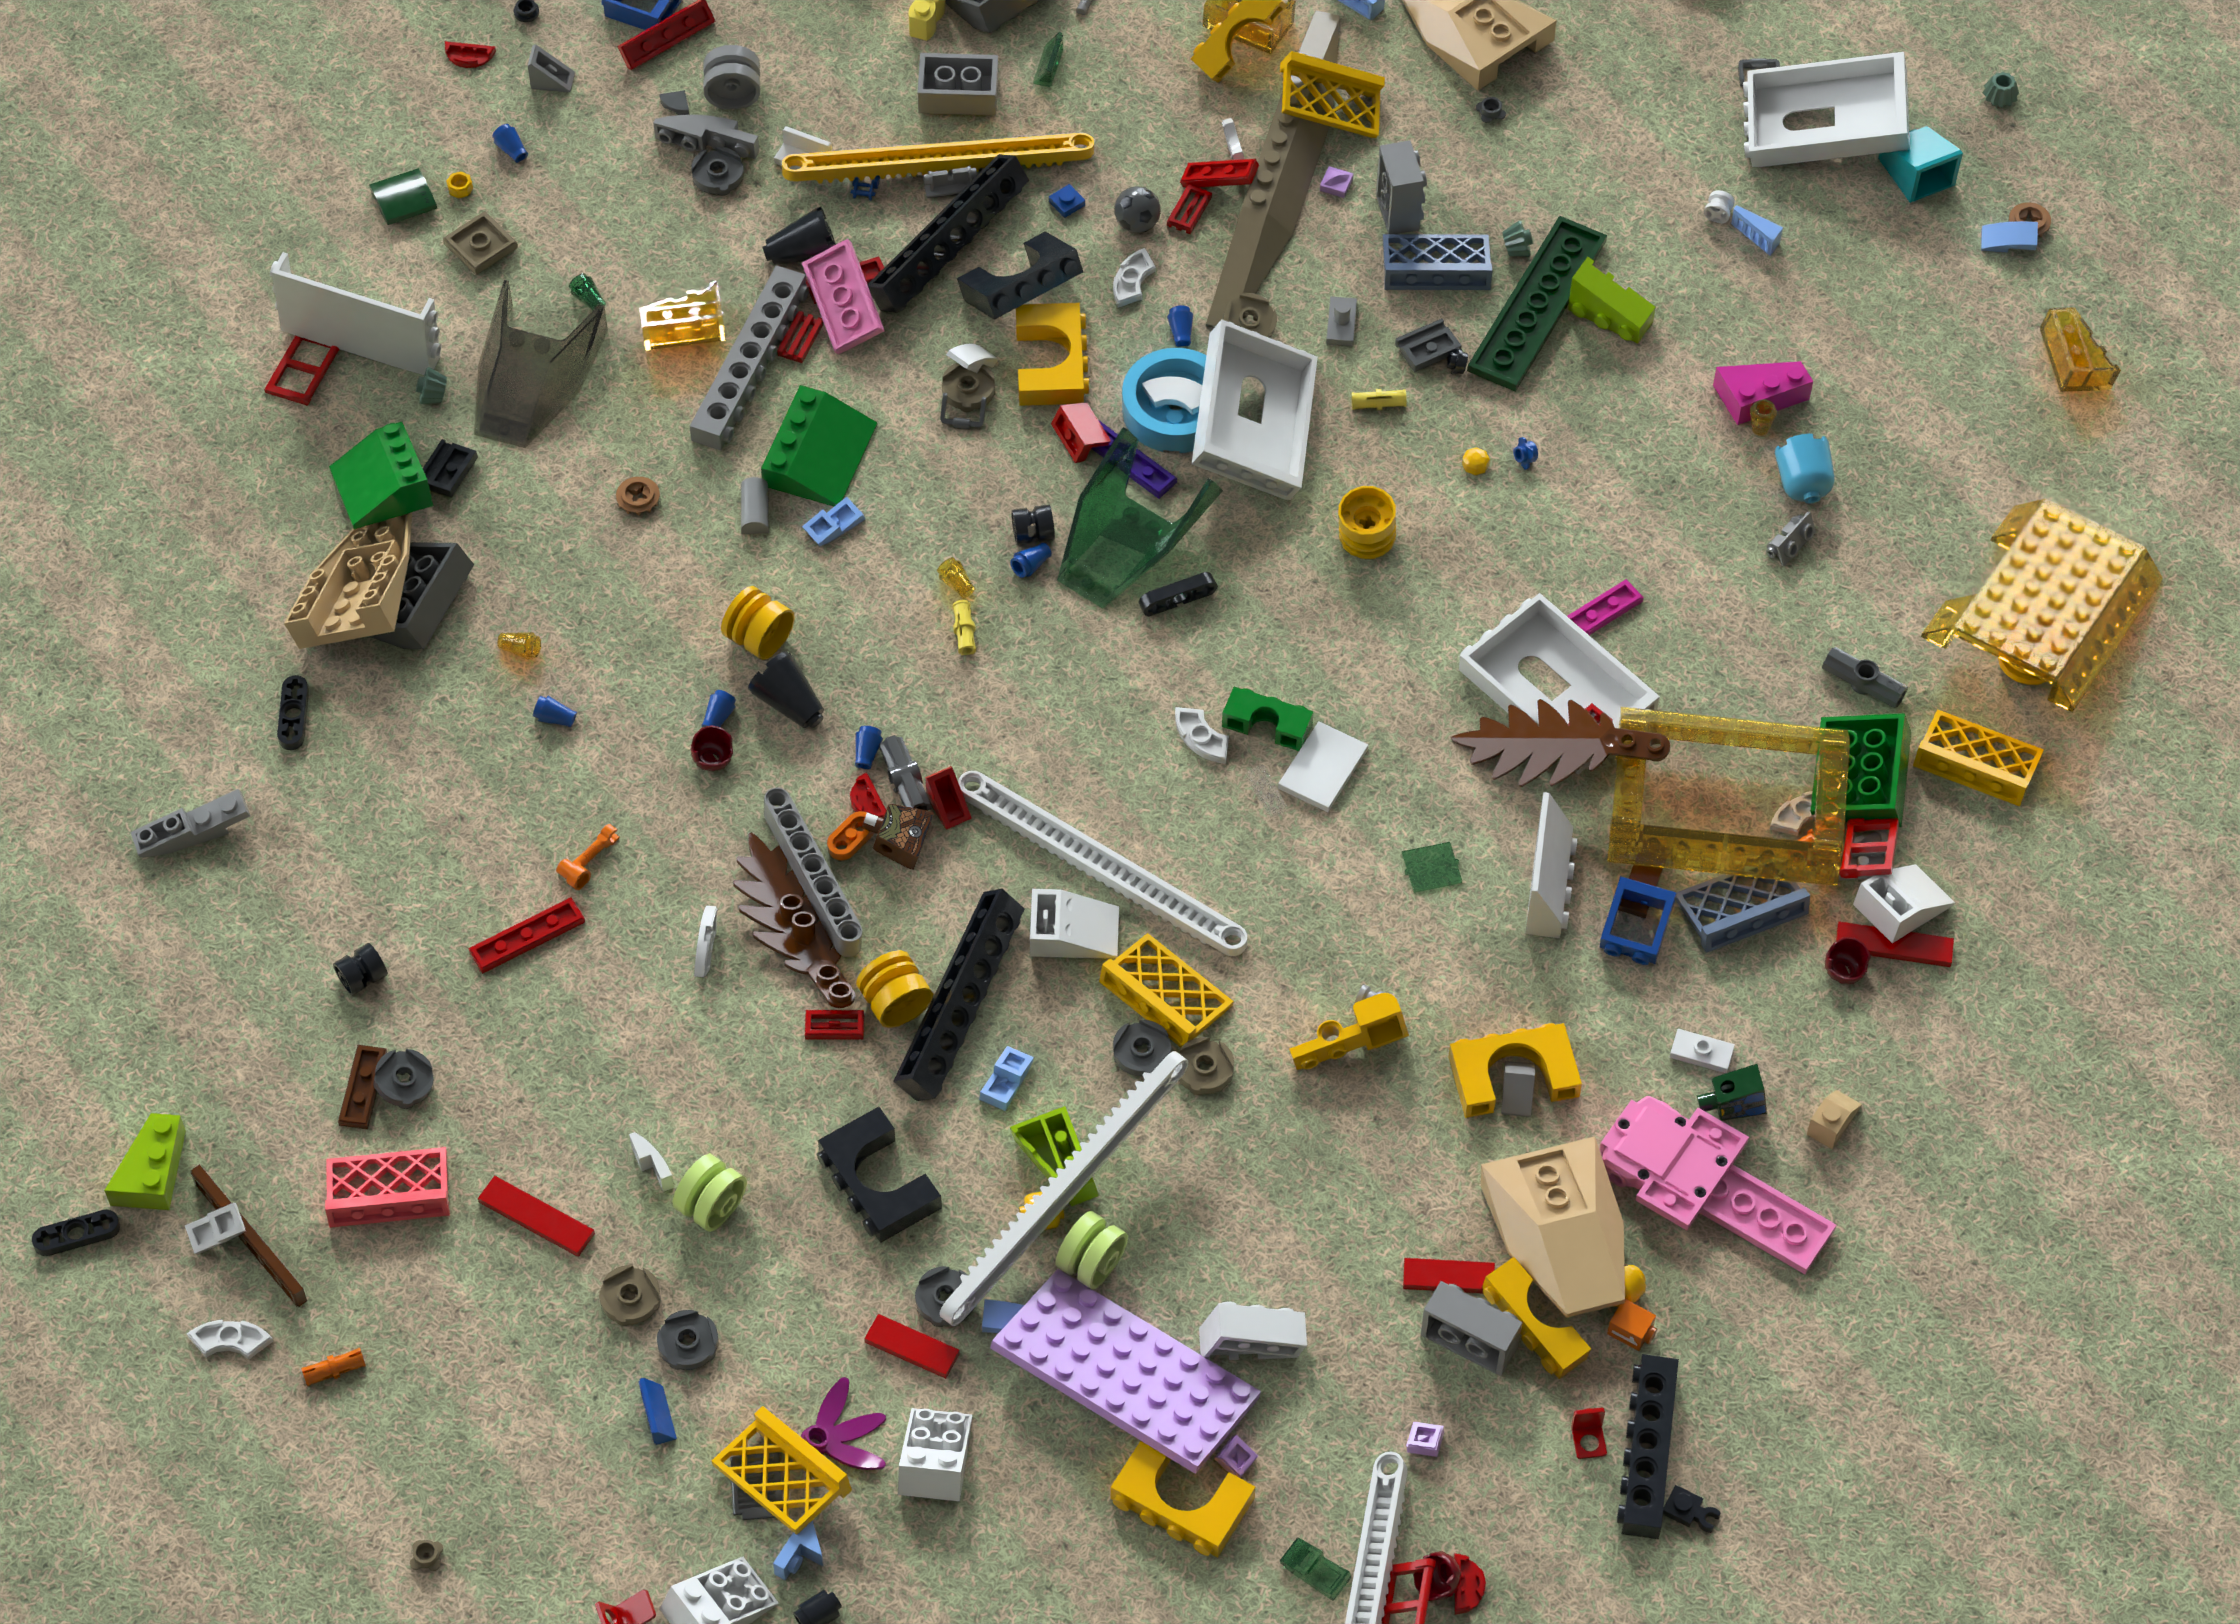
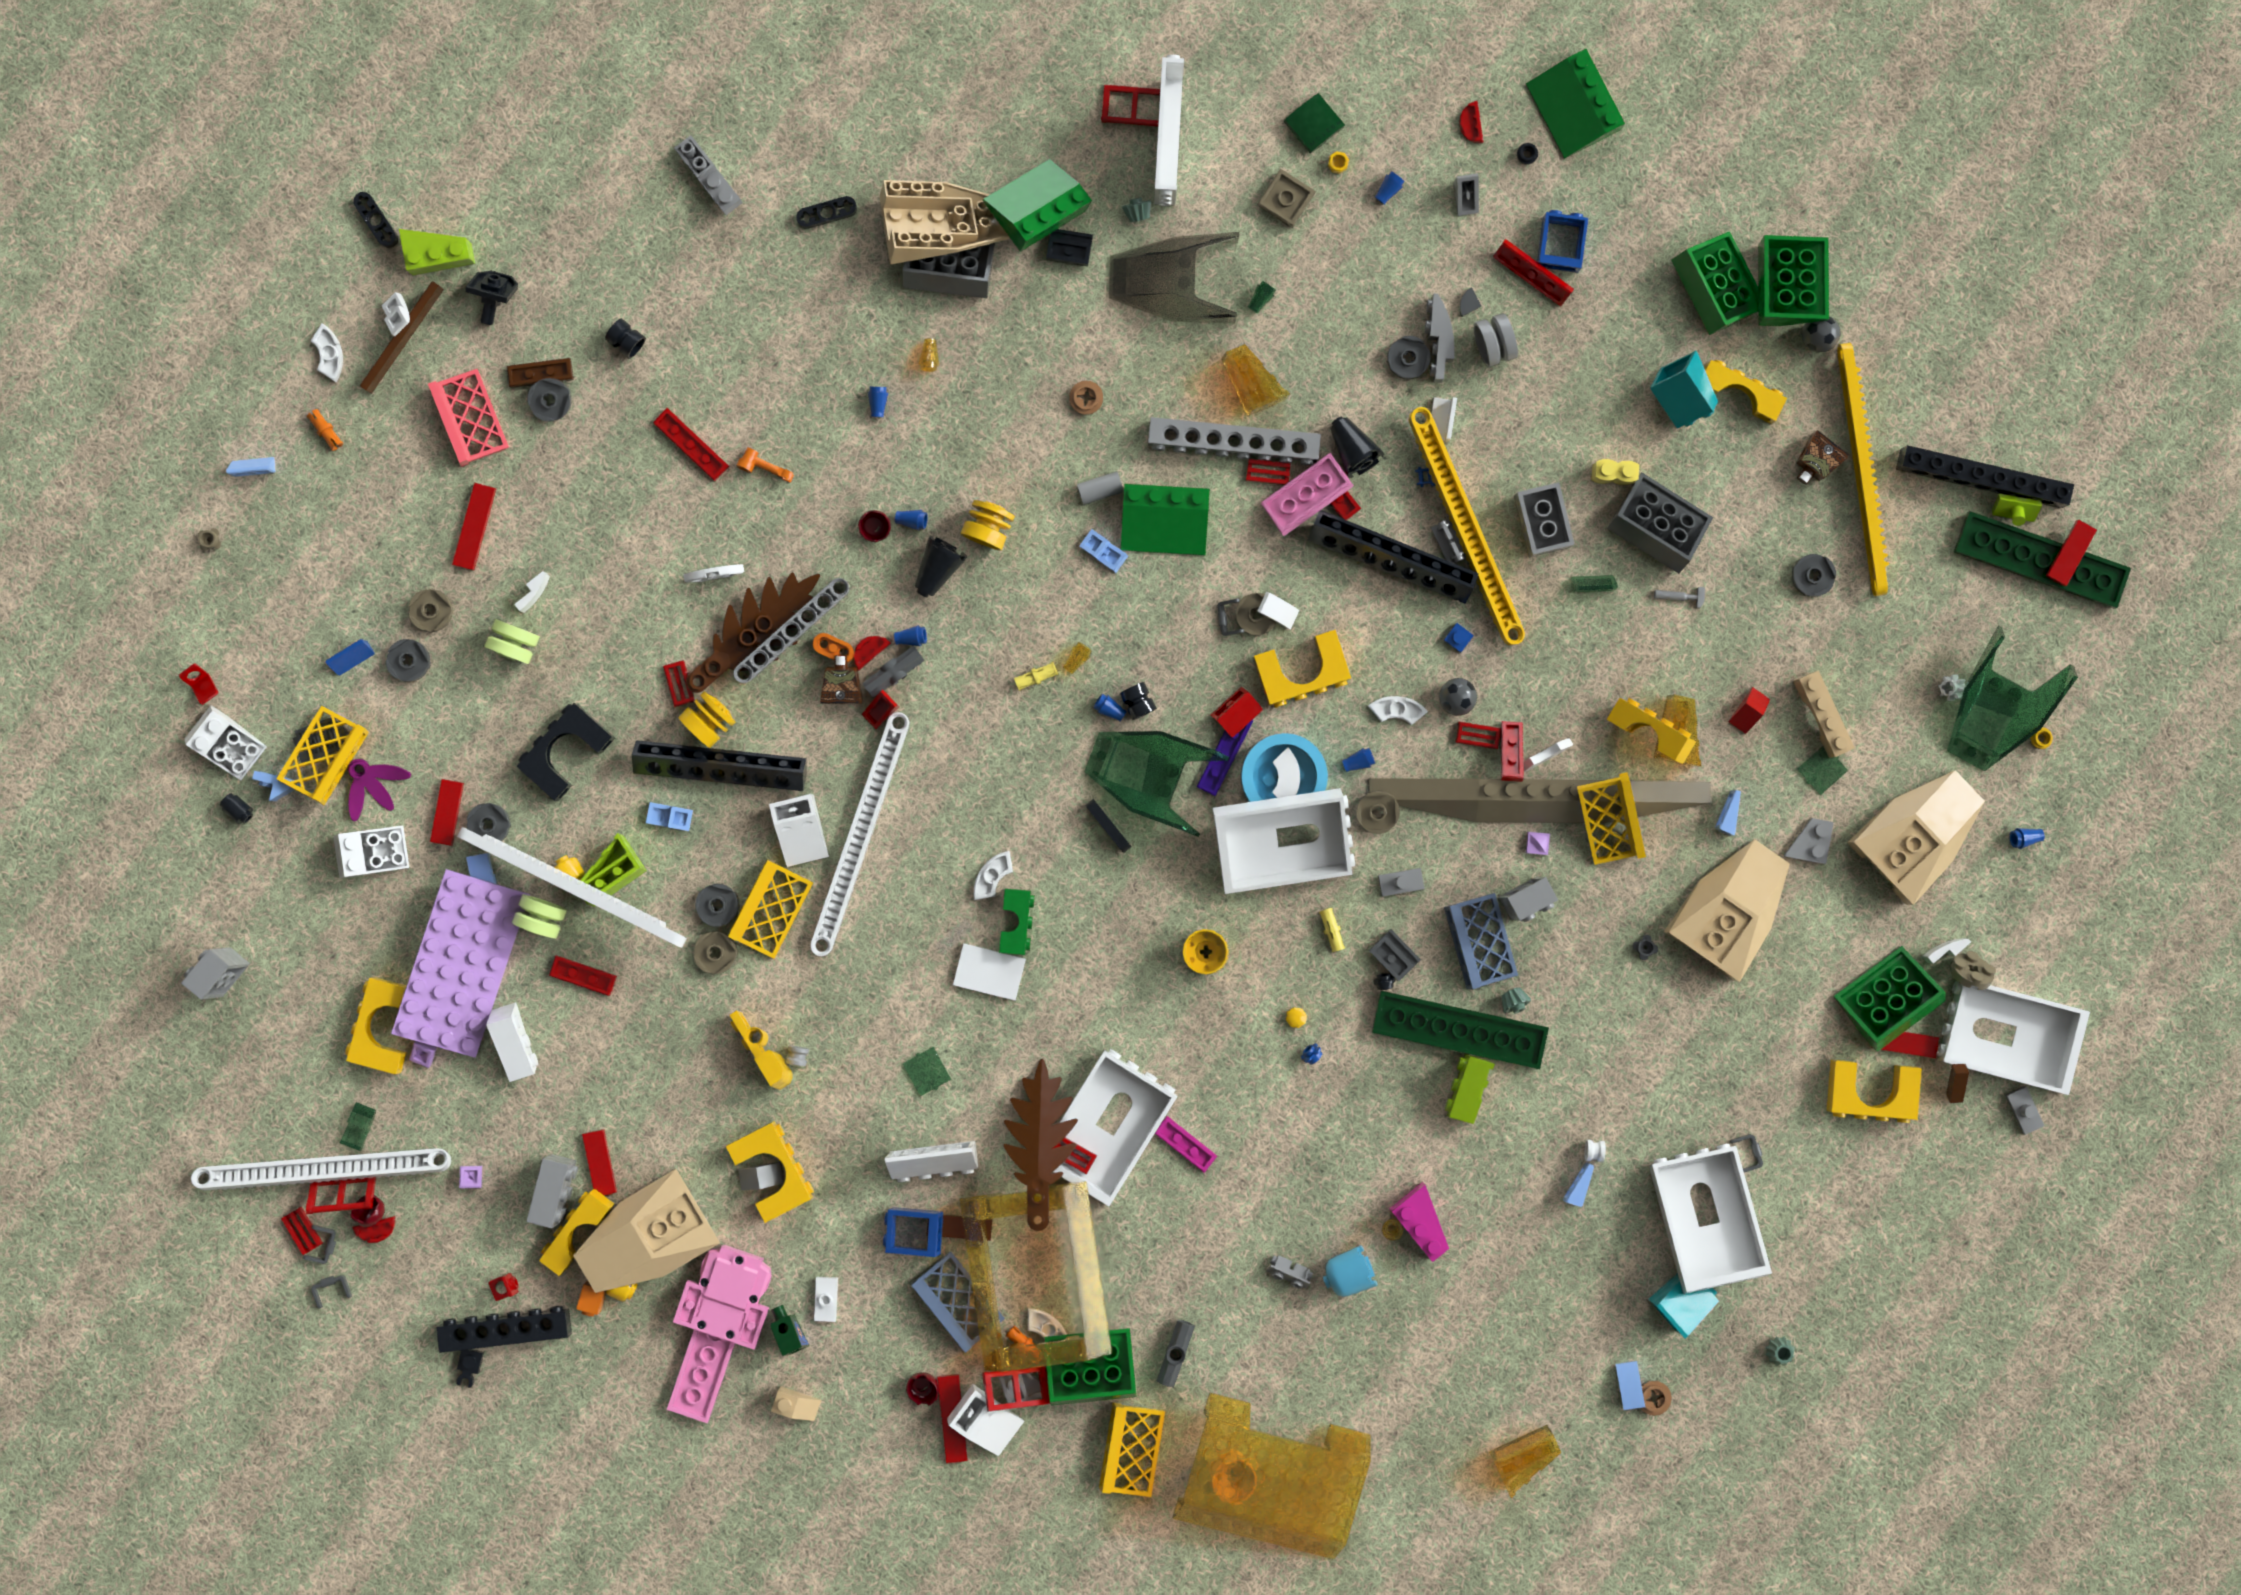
camera: 75 degrees right, 30 degrees up
(231, 1104) = (493, 289): none -> black piece
(348, 1472) = (251, 467): none -> light blue slope
(1051, 264) = (1374, 650): black arch -> none
(1187, 1234) = (582, 975): none -> red tile

